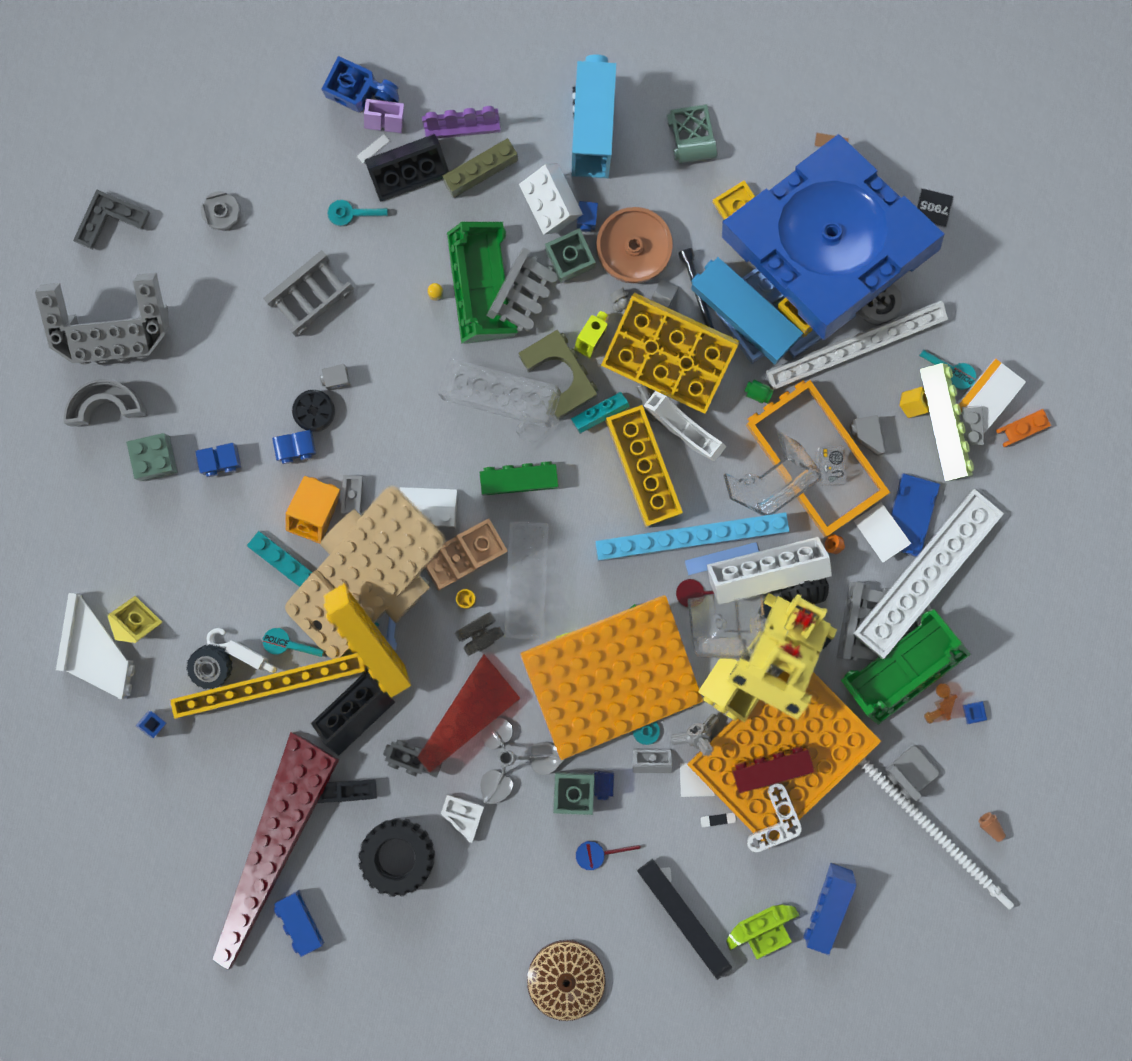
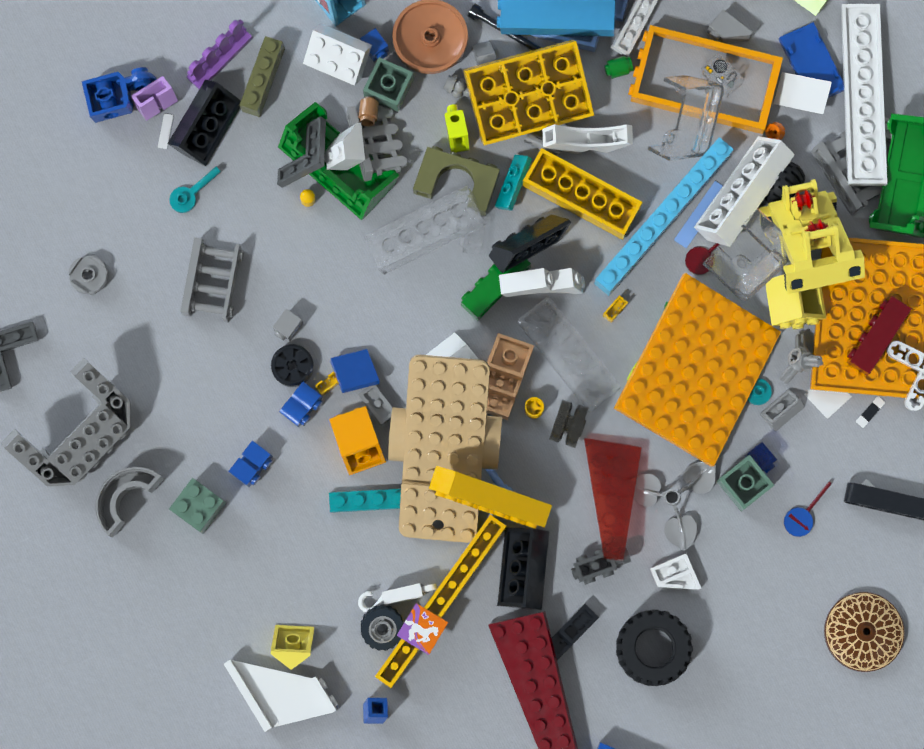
camera: 30 degrees left, 5 degrees down
(235, 694) = (422, 629): none -> sticker
(278, 641) = (417, 564): teal piece -> none
(329, 447) = (328, 384): none -> yellow piece
(355, 455) = (354, 371): none -> blue tile
(463, 264) = (311, 160): none -> dark grey plate
(492, 279) = (346, 149): none -> white slope
(536, 263) = (368, 111): none -> medium nougat brick
(552, 509) = (541, 282): none -> white arch
(568, 469) = (528, 242): none -> black slope
(593, 575) = (615, 309): none -> yellow piece

